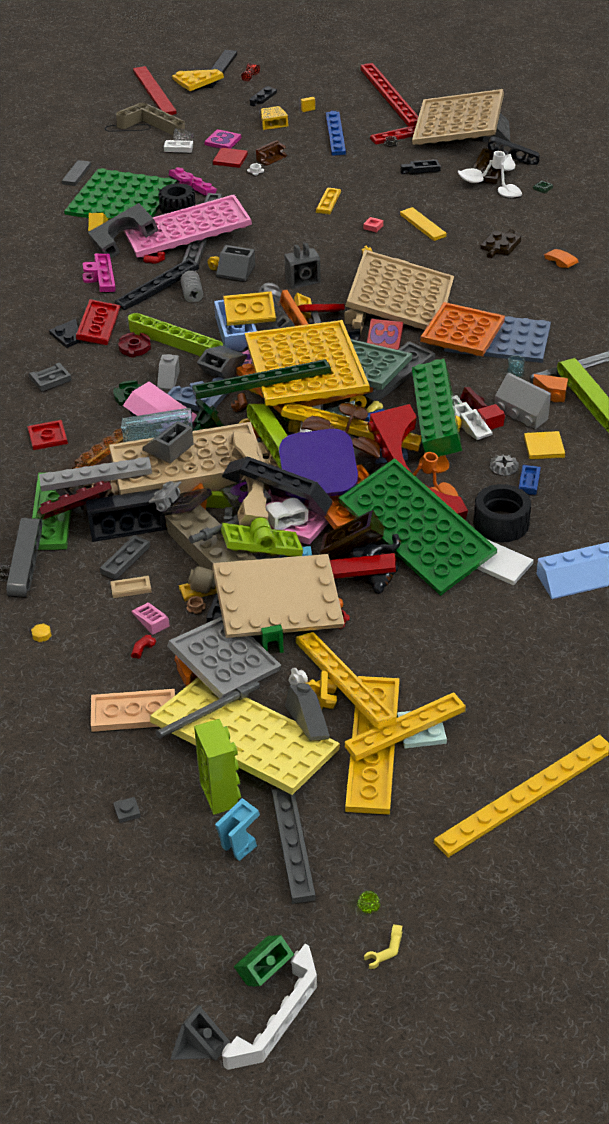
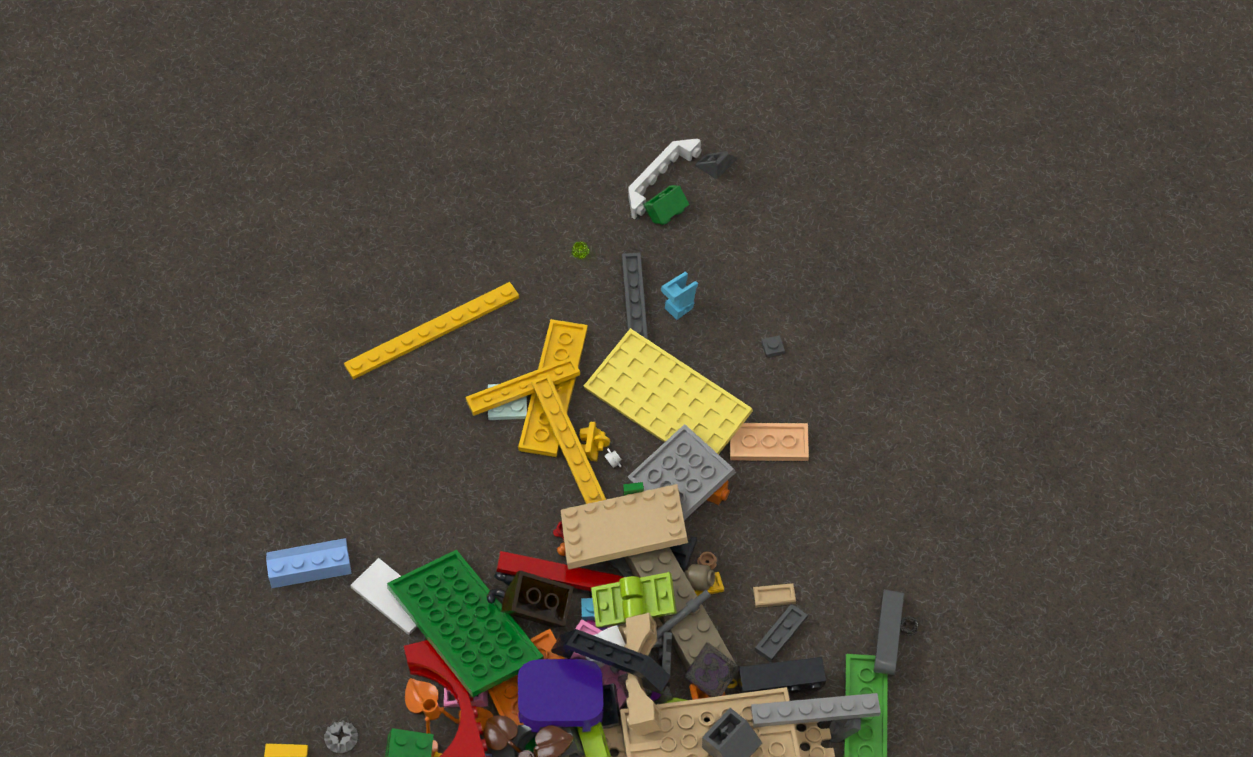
camera: 175 degrees left, 15 degrees up
(41, 632) = (863, 543): yellow tile -> none
(66, 502) = (845, 679): dark red plate -> none
(138, 648) = (761, 518): red arm -> none
(153, 621) = (745, 536): bright pink slope -> none
(166, 496) = (735, 672): light grey hinge -> none
(217, 765) = (693, 335): lime brick -> none
(239, 693) = (701, 411): dark grey bar -> none
(306, 711) = (609, 412): dark grey slope -> none
(387, 953) = (563, 223): light yellow arm -> none
(502, 526) = (372, 662): black tyre -> none
(529, 479) = (319, 704): blue plate -> none

